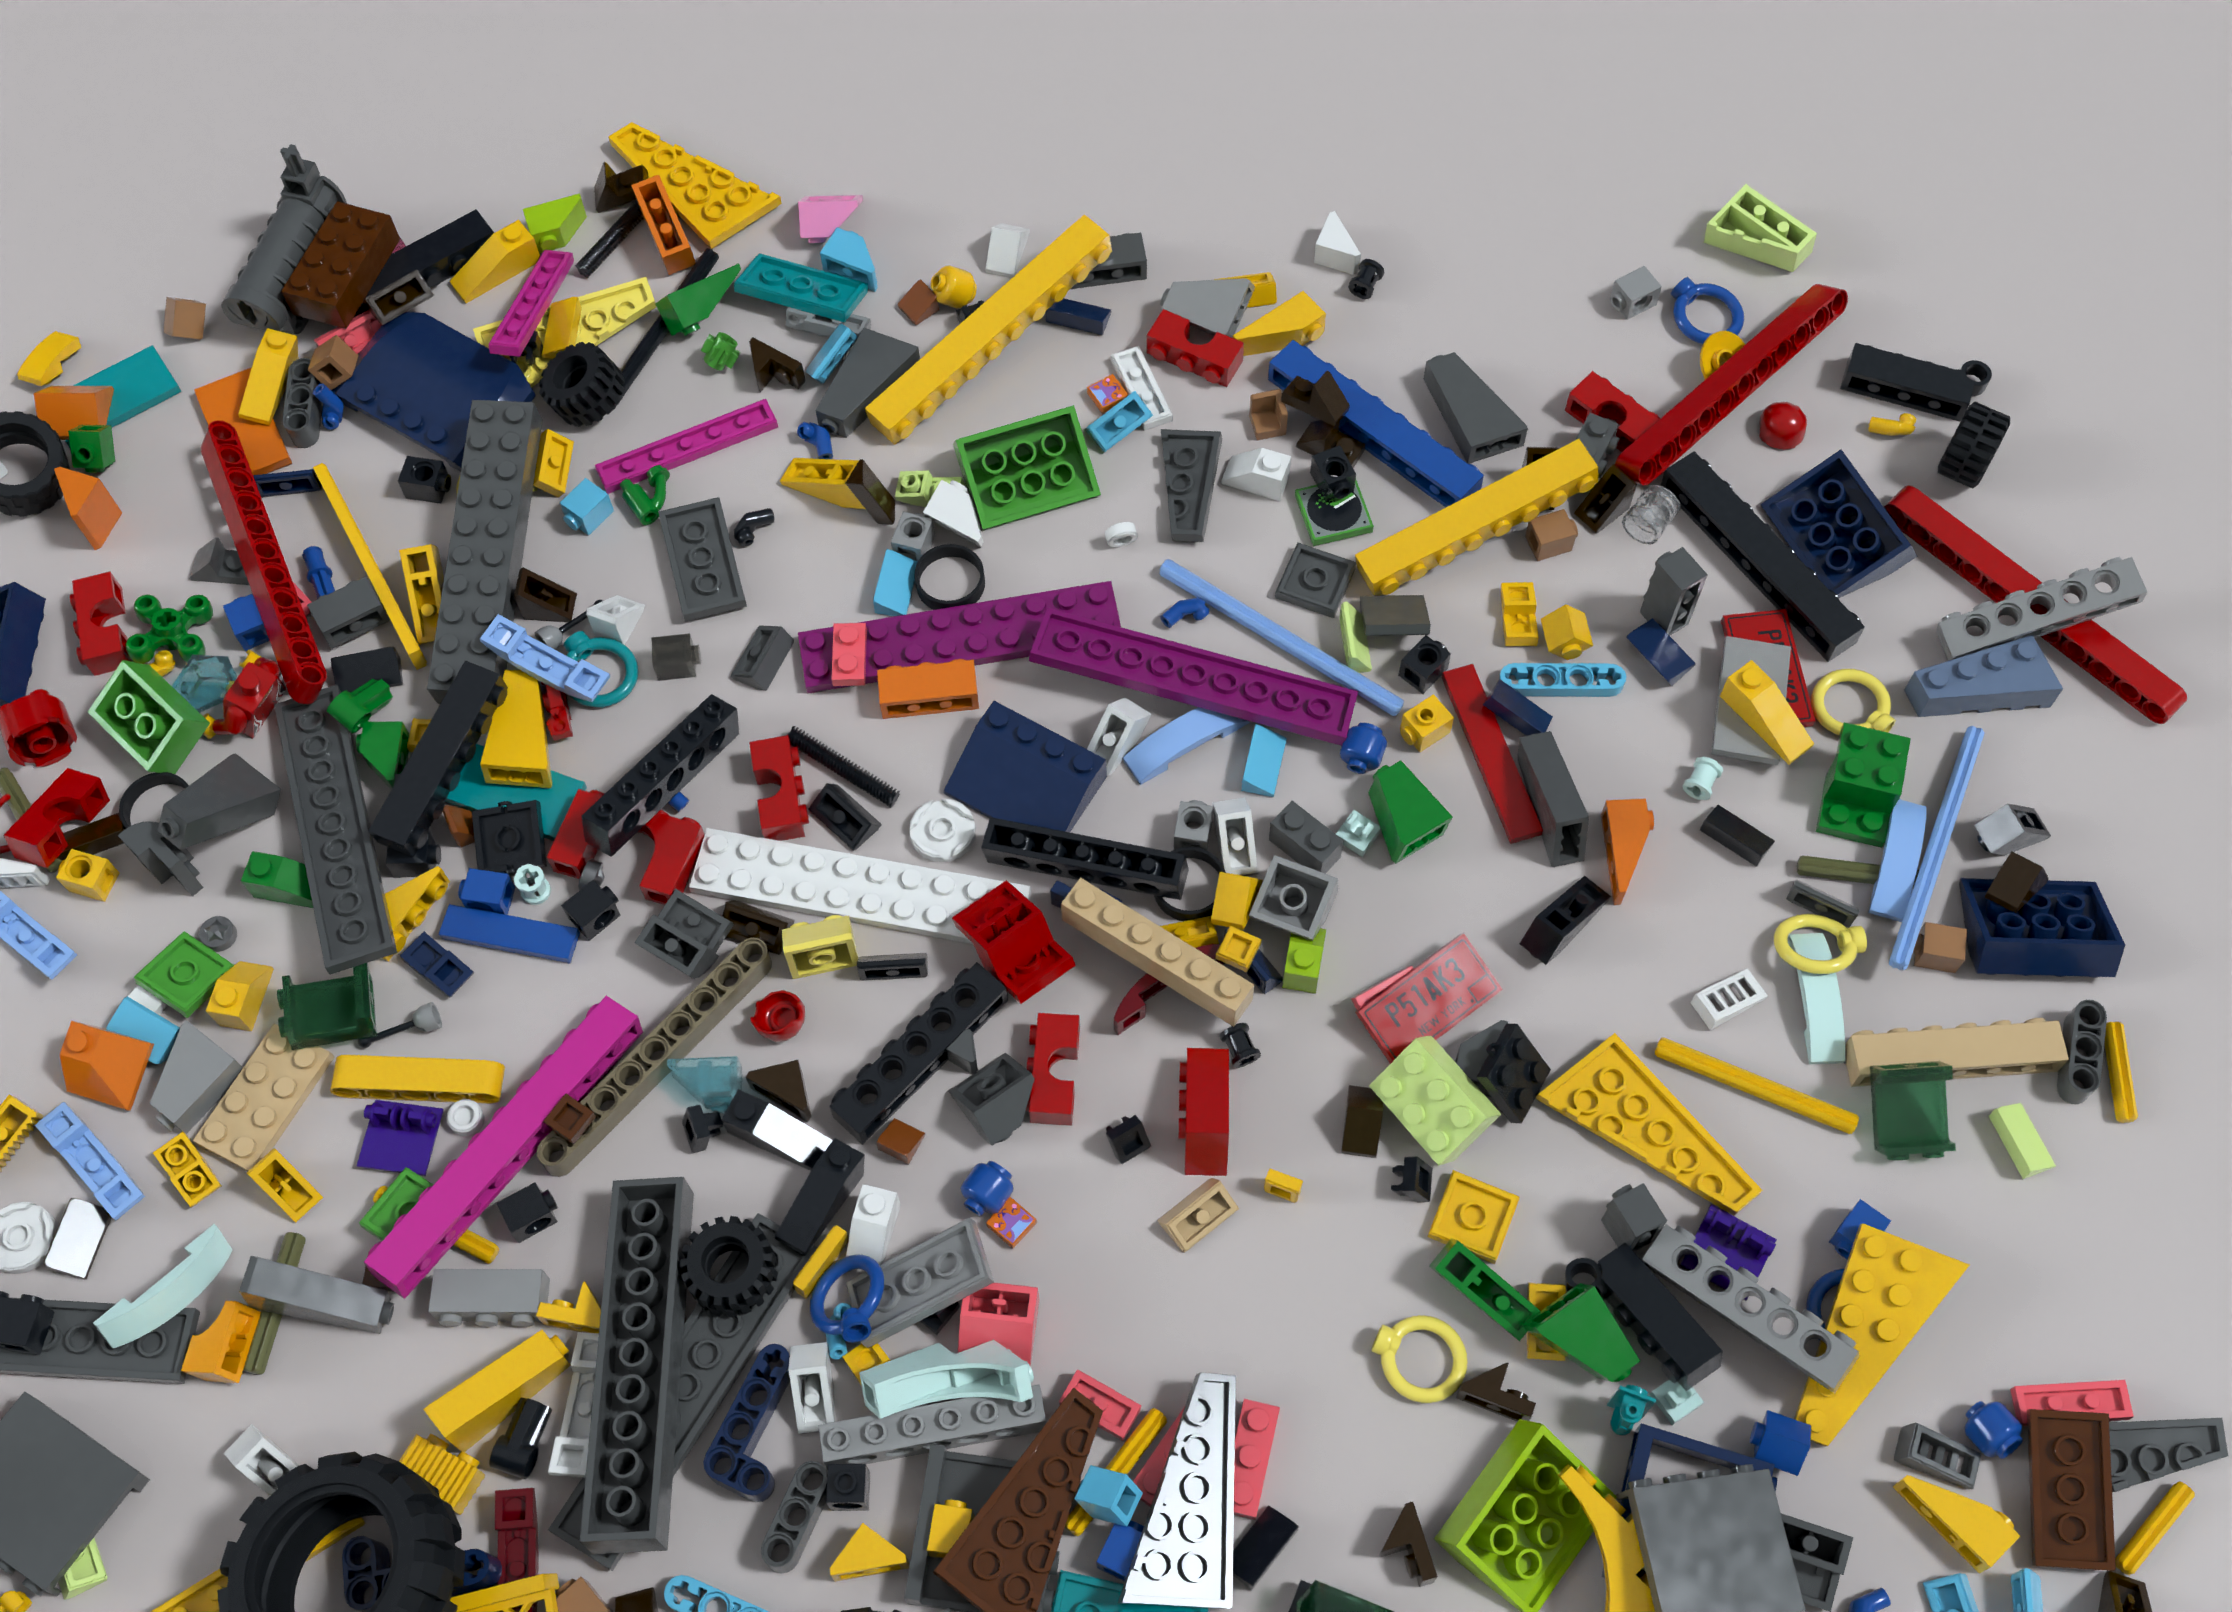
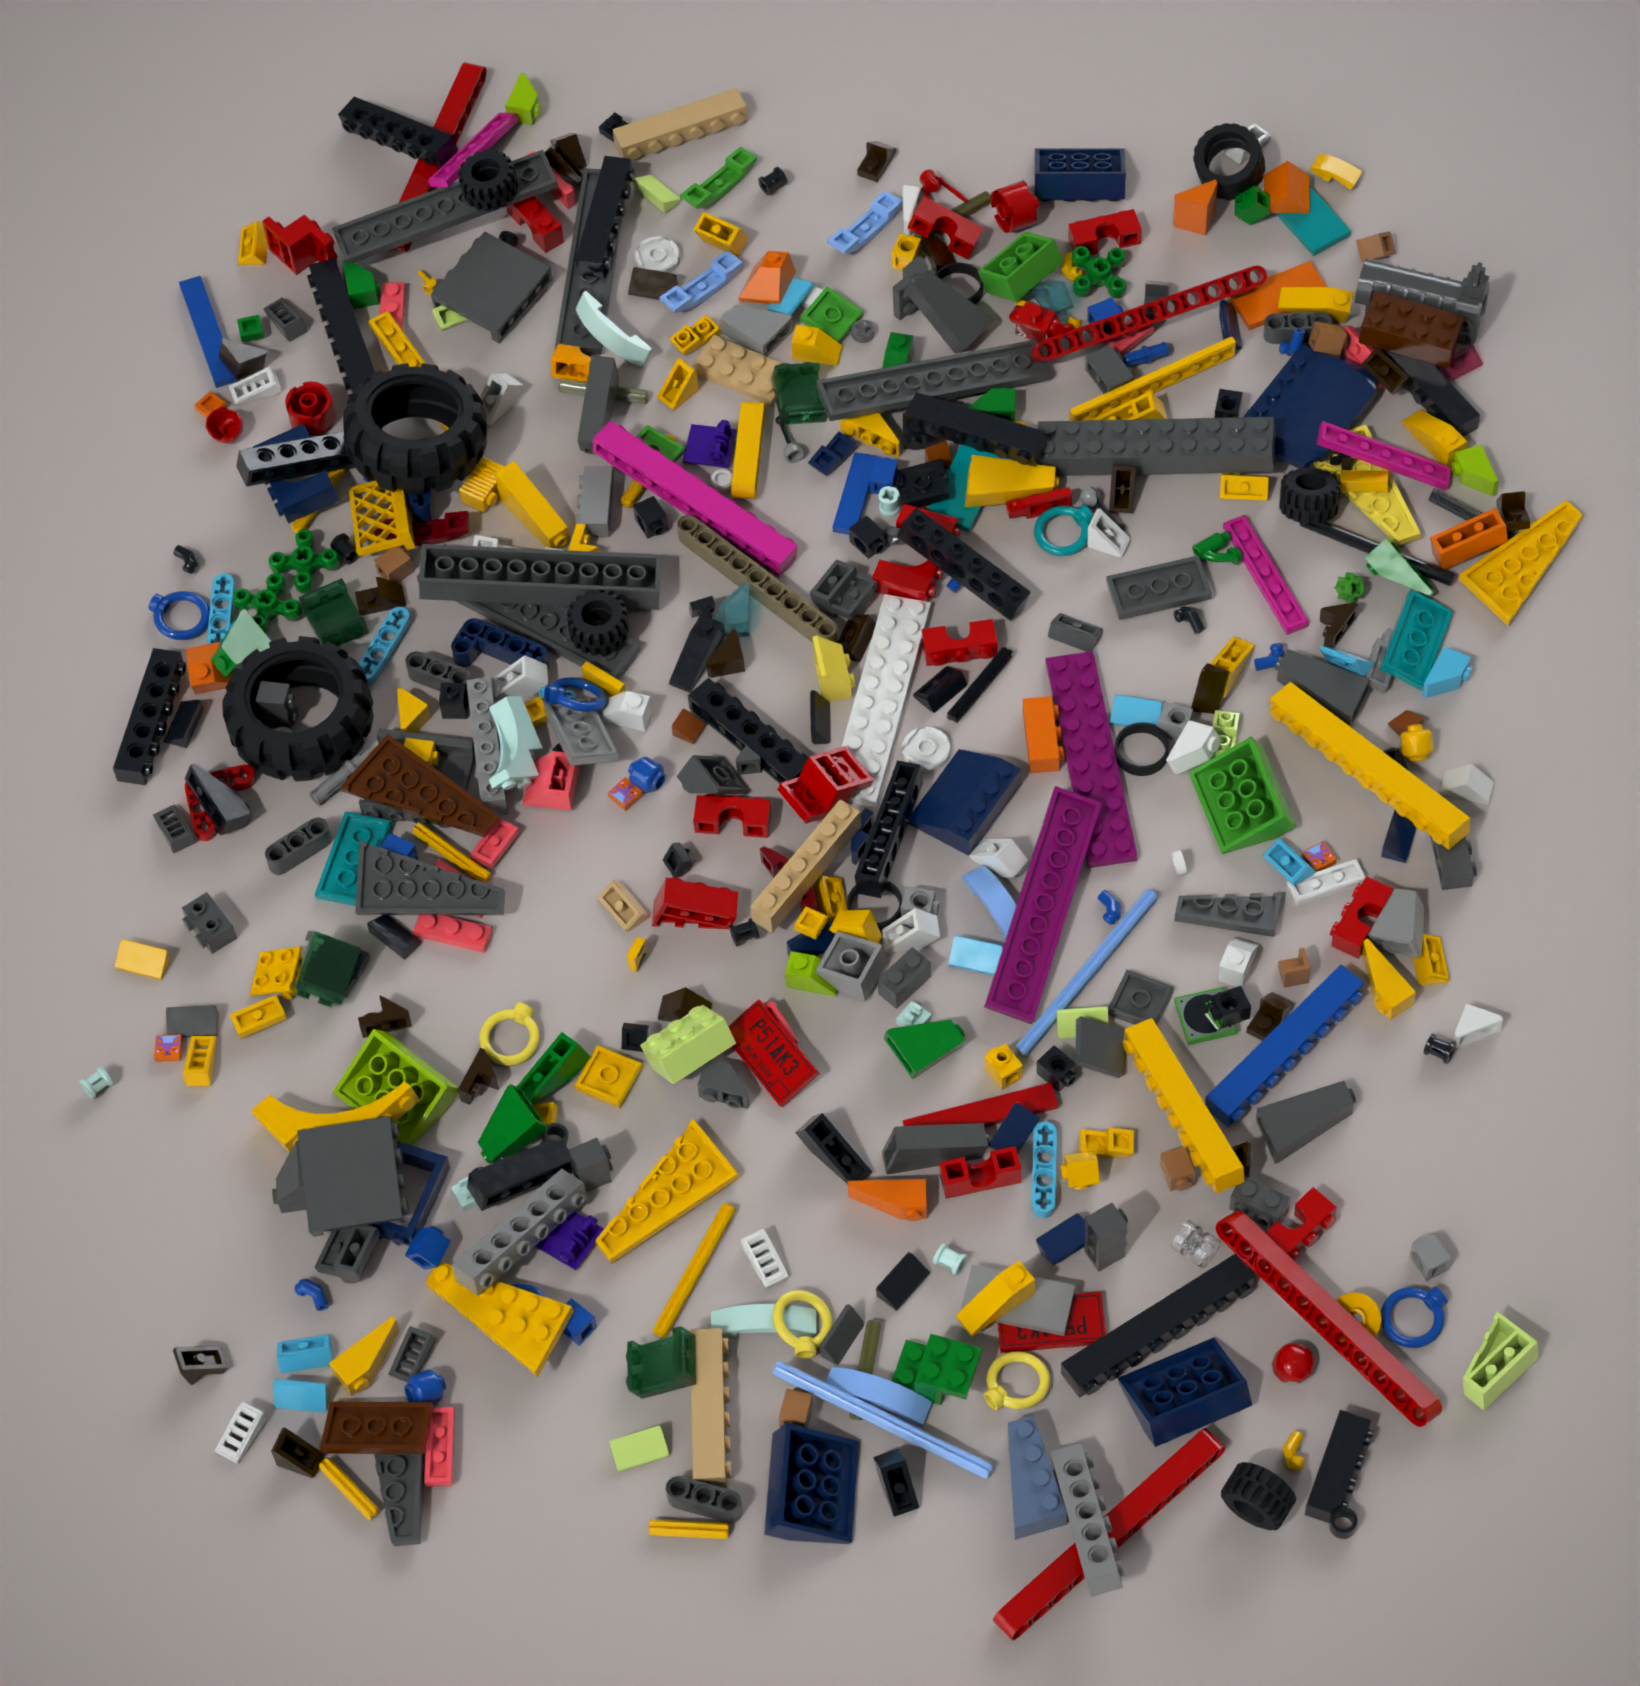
camera: 95 degrees right, 5 degrees down
(358, 668) = (1064, 391): black slope -> none
(358, 706) = (1026, 383): green piece -> none
(518, 1448) = (497, 524): black piece -> none
(543, 662) = (1058, 486): light blue slope -> none
(569, 1118) = (705, 527): reddish brown plate -> none
(586, 507) = (1203, 510): medium azure brick -> none
(675, 657) = (1071, 573): clear smoke brick -> none
(779, 1016) = (780, 650): red hair -> none
(821, 1196) = (647, 678): black slope -> none
(823, 214) = (1494, 652): bright pink slope -> none
(849, 654) = (1068, 680): coral plate -> none
(1108, 1495) = (428, 836): medium azure brick -> none
(1321, 400) = (1296, 991): dark brown slope -> none
(1363, 748) = (981, 1020): blue head -> none
(1513, 1073) = (706, 1097): black plate -> none
(1577, 726) = (997, 1171): none -> red arch
(1607, 499) = (1209, 1211): dark brown slope -> none
(1629, 1407) = (457, 1149): teal hinge -> none
(2016, 882) = (846, 1471): dark brown slope -> none

